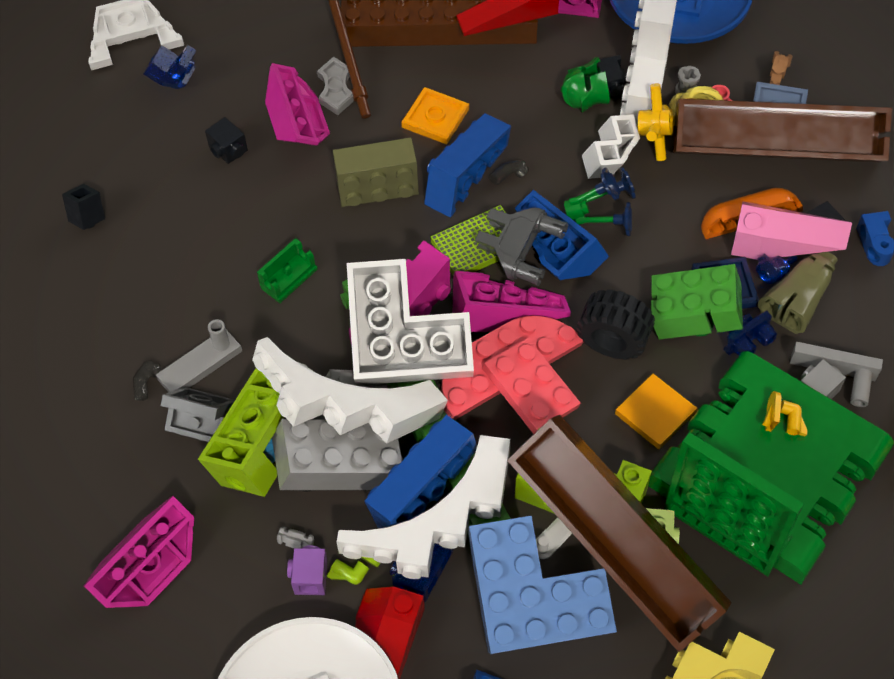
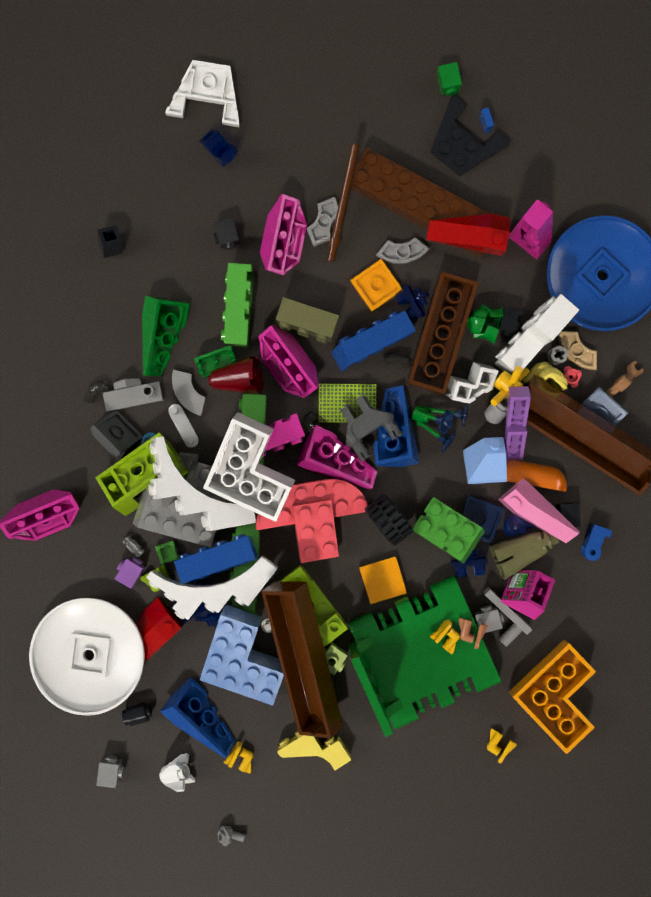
camera: 25 degrees right, 30 degrees up
(181, 347) = (126, 383): none -> light grey tile
(195, 263) = (160, 327): none -> green wedge
(265, 323) = (186, 393): none -> light grey tile
(279, 195) = (238, 304): none -> bright green wedge
(321, 270) = (238, 377): none -> dark red cone
(347, 519) = (167, 552): none -> bright green tile
(375, 229) = (288, 362): none -> dark pink wedge
(445, 73) = (402, 253): none -> light grey tile
(462, 575) = (211, 619): none -> clear blue piece
(489, 102) = (407, 294): none -> clear blue hips
(544, 119) = (442, 333): none -> reddish brown brick
(661, 159) = (495, 414): none -> light grey brick
(687, 211) = (486, 461): none -> light blue slope
(690, 151) = (516, 422): none -> medium lavender slope
(711, 73) = (577, 352): none -> tan tile
(799, 393) = (465, 626): none -> nougat piece
(846, 321) = (528, 592): none -> dark pink slope

